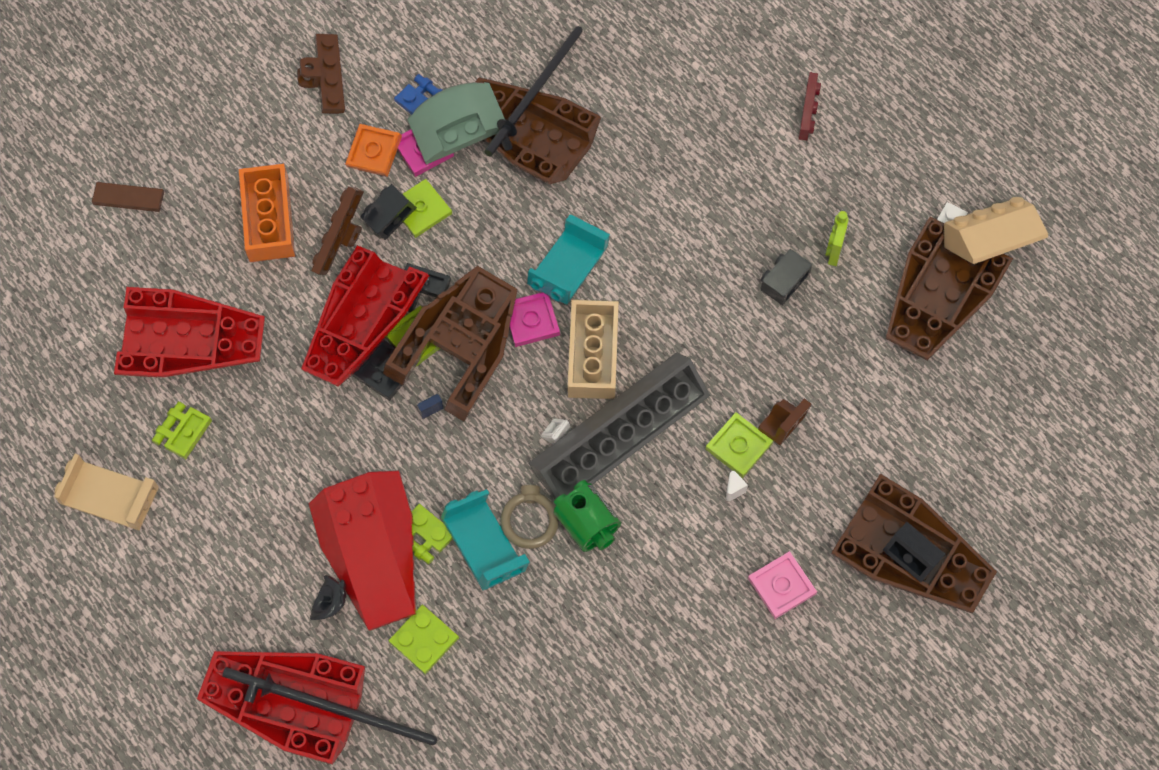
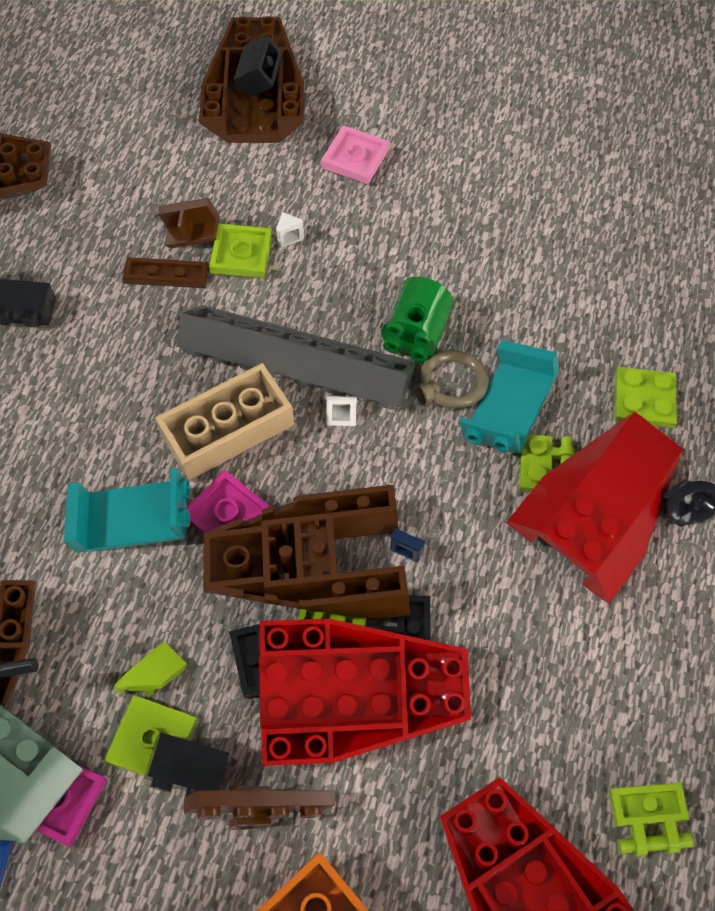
camera: 125 degrees left, 5 degrees down
(373, 150) = (97, 862): orange tile -> none
(458, 228) = (152, 671): none -> lime slope
(755, 386) = (166, 272): none -> reddish brown tile

